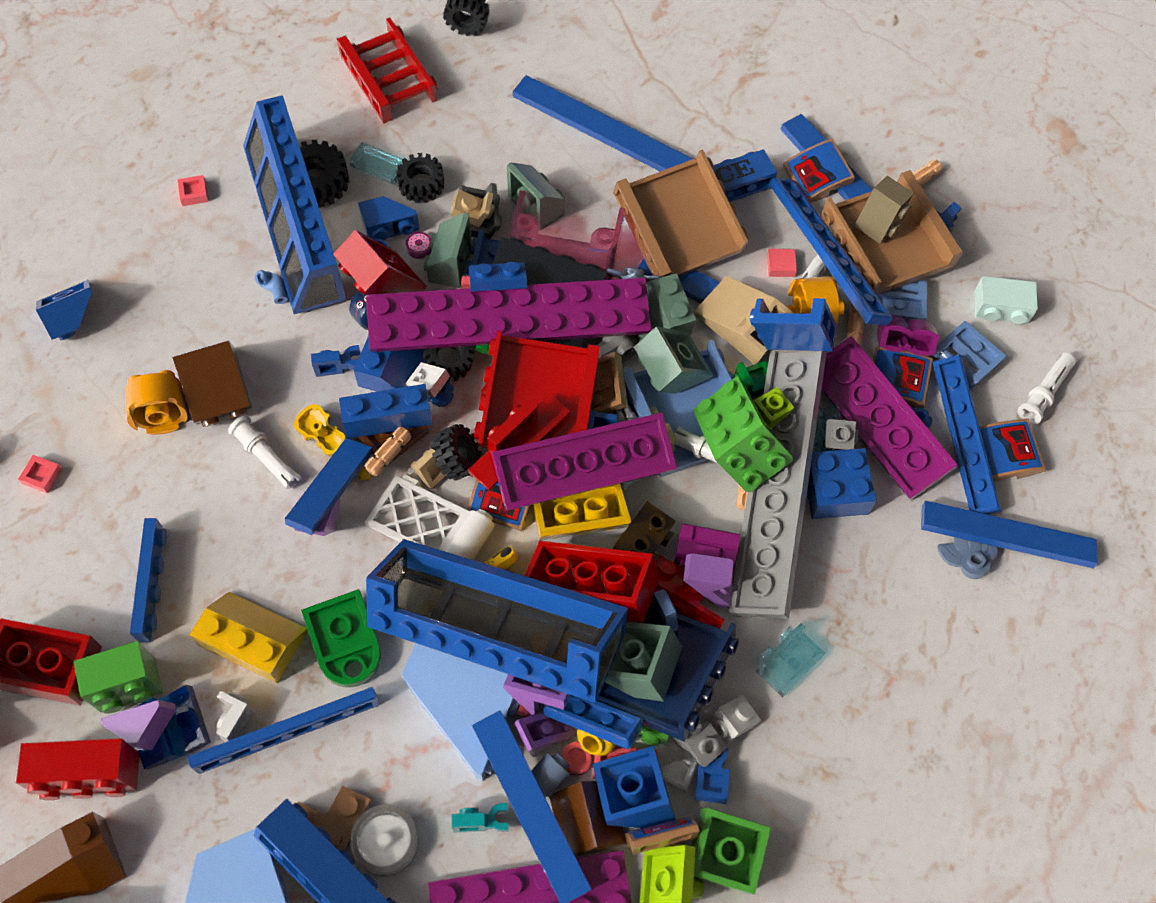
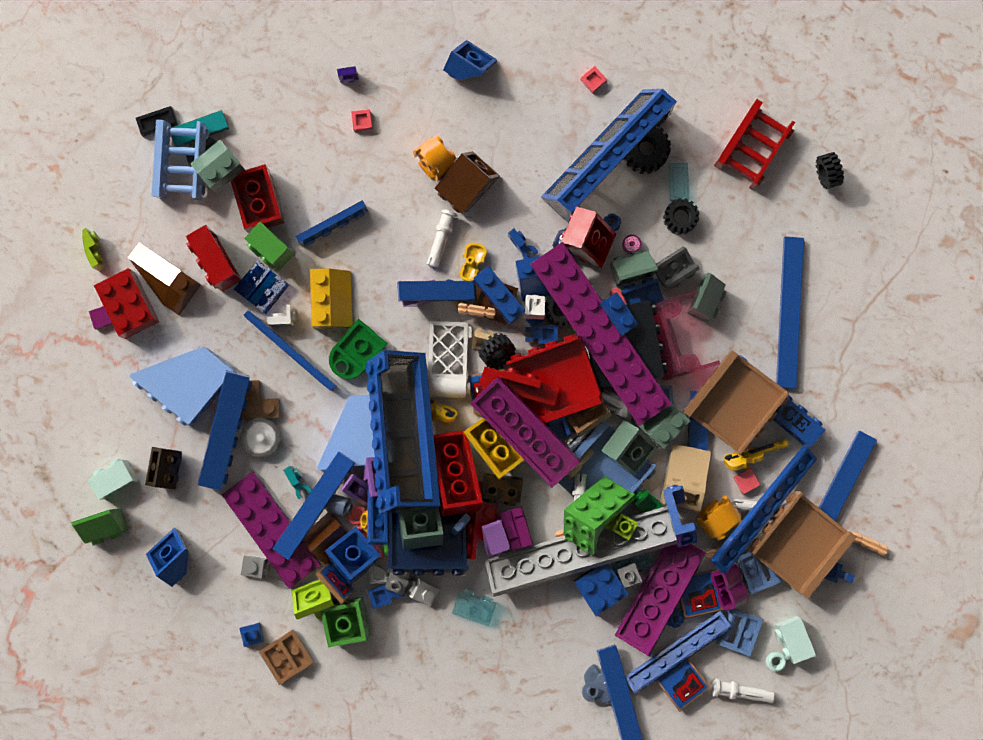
camera: 65 degrees right, 20 degrees up
(141, 724) = (249, 275): medium lavender slope -> none
(272, 283) = (554, 172): medium blue arm -> none
(387, 218) = (637, 212): blue slope -> none
(467, 392) = (545, 334): none -> blue plate
(476, 207) = (671, 264): tan bracket -> none
(630, 273) = (676, 393): sand blue plate -> none
(754, 252) = (755, 454): none -> yellow piece
(819, 170) = (833, 473): slope -> none
(884, 209) = (810, 534): dark tan brick -> none
(1027, 329) = (781, 664): none -> light aqua plate

